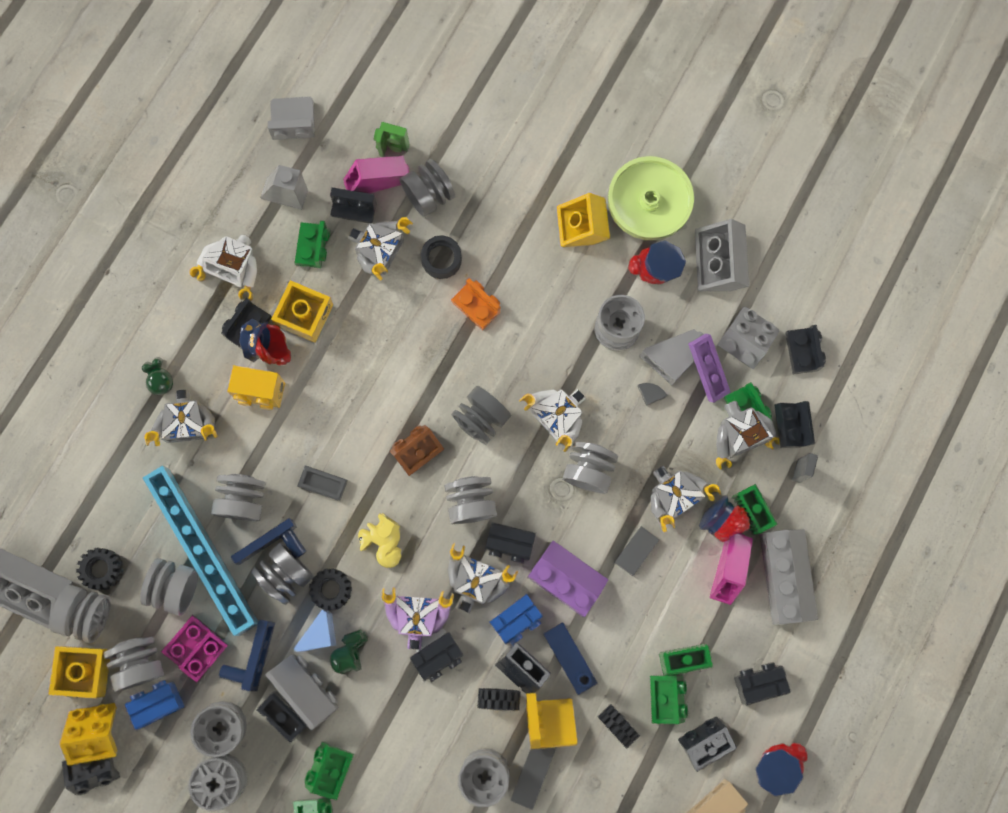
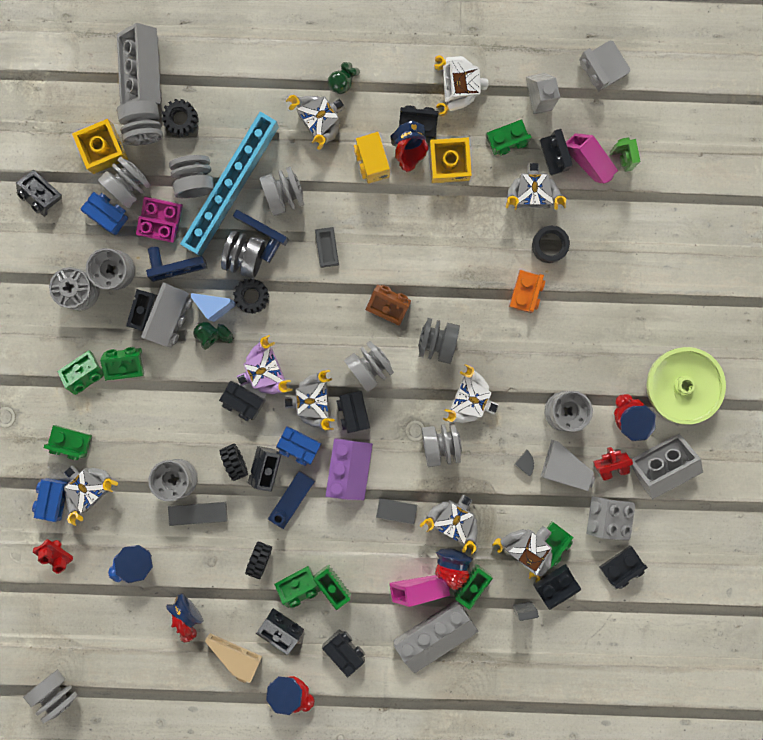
camera: 70 degrees right, 10 degrees up
(89, 734) = (61, 177): yellow bracket -> none
(387, 537) = (310, 317): light yellow animal -> none
(430, 186) = (602, 204): flat silver wheel -> none
(550, 722) = (236, 509): yellow bracket -> none
(583, 221) = (639, 341): yellow slope -> none
(691, 307) = (613, 461): none -> red hips
(709, 367) = (568, 499): medium lavender plate -> none

